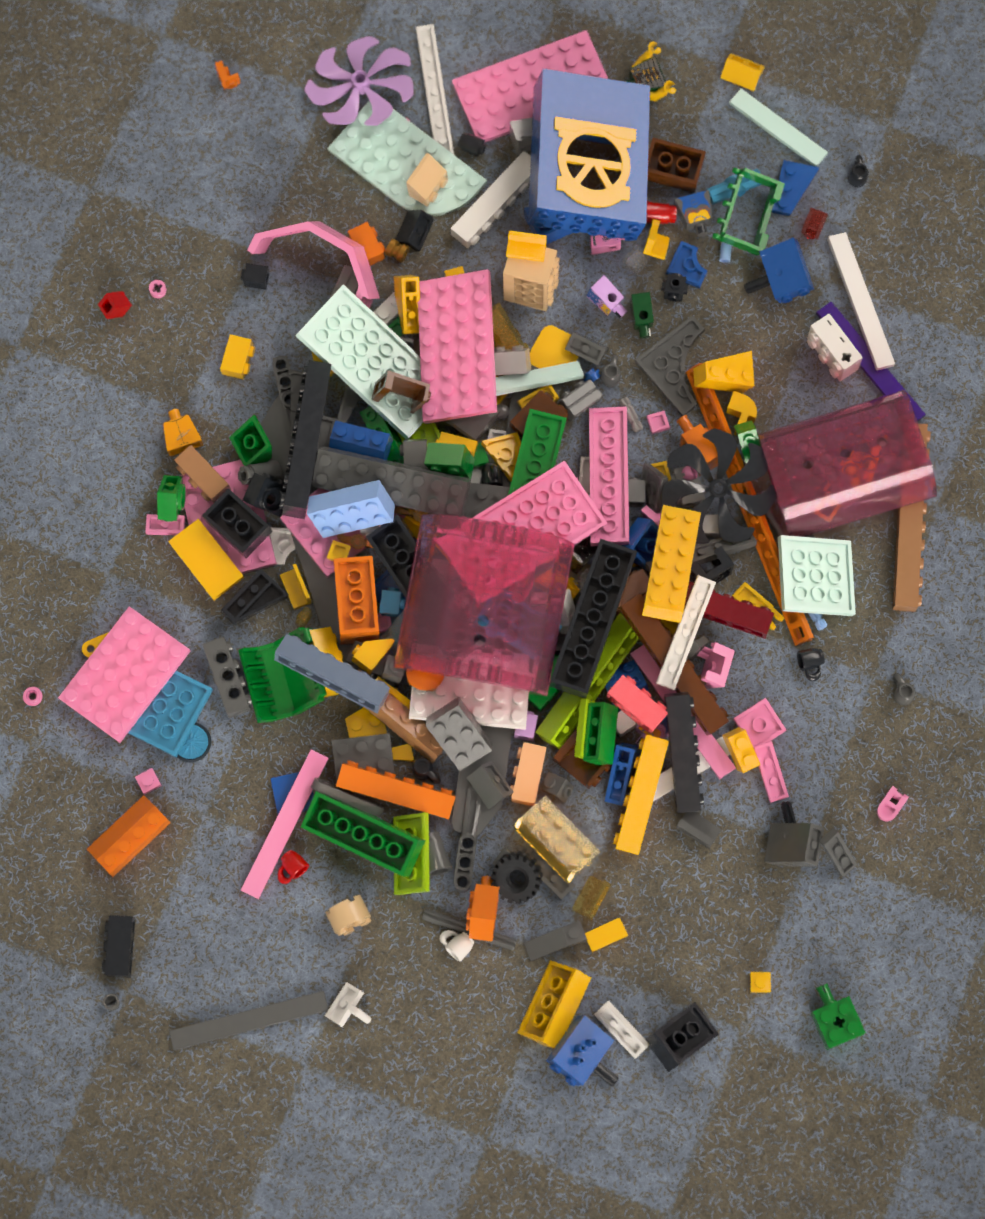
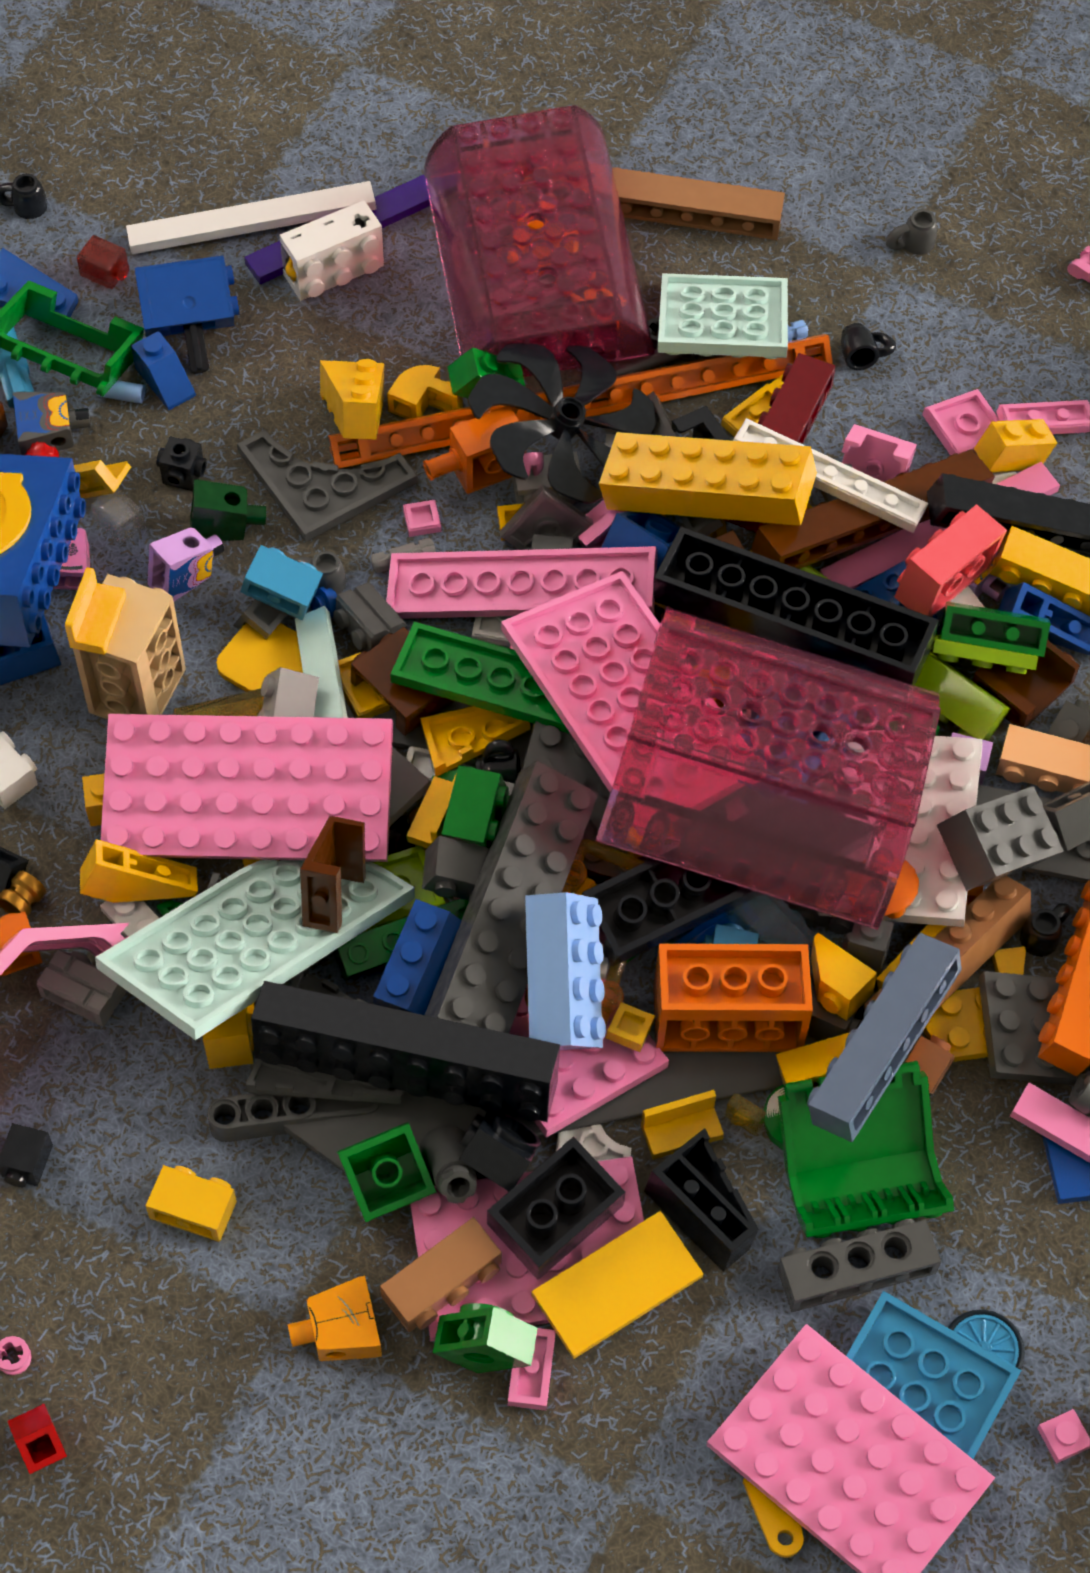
camera: 90 degrees left, 15 degrees down
(337, 707) = (933, 1059): none -> nougat brick
(591, 347) = (281, 582): none -> dark azure brick
(687, 265) = (137, 448): blue tile -> none
(739, 268) = (162, 370): none -> blue slope

